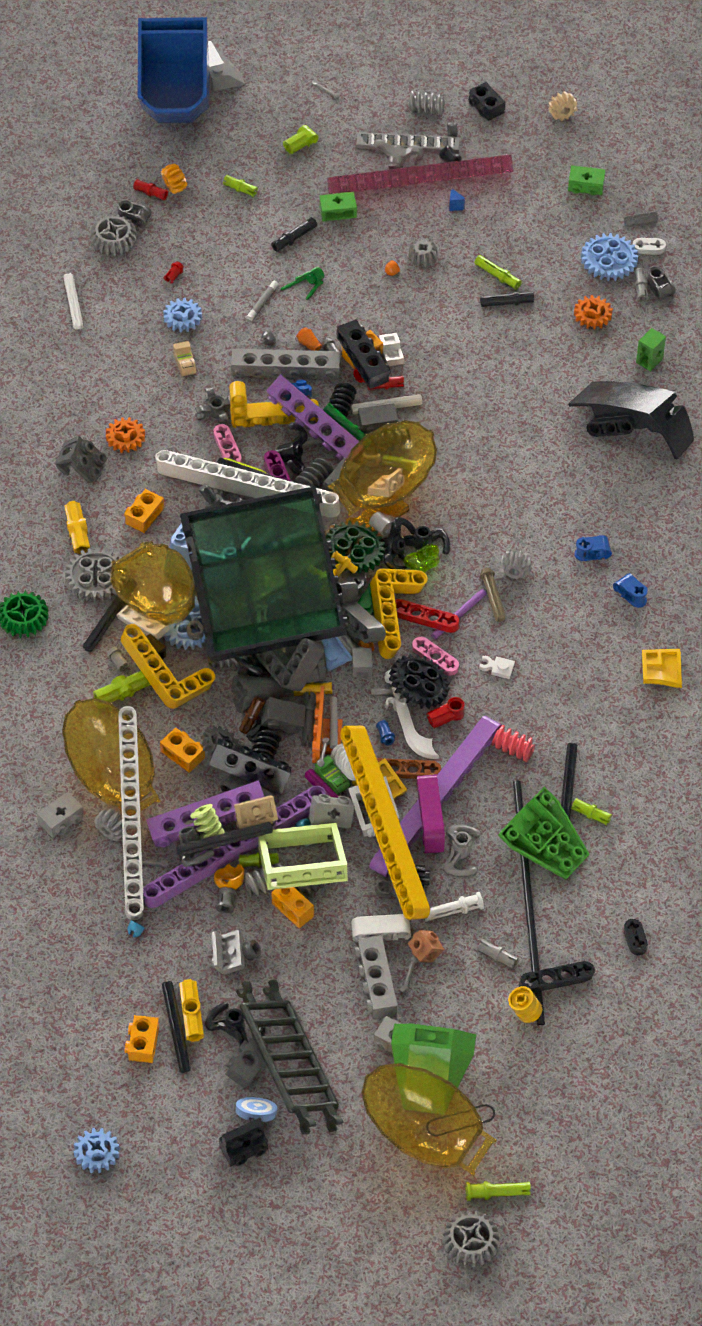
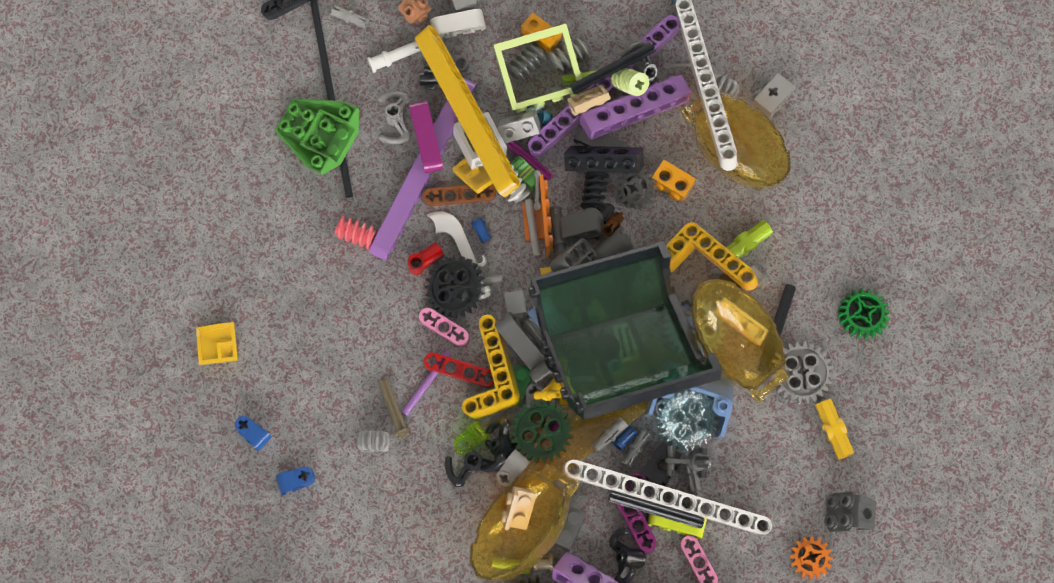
camera: 175 degrees right, 20 degrees up
(144, 510) = (766, 458): light orange brick -> none
(226, 900) = (602, 30): flat silver bush -> none
(234, 875) = (606, 49): light orange hair -> none
(315, 473) = (598, 530): dark grey piece -> none
(500, 667) = (377, 324): white plate -> none
(569, 774) = (299, 218): black axle -> none
(591, 811) = (275, 173): lime pin -> none
(631, 938) = (230, 49): black beam -> none

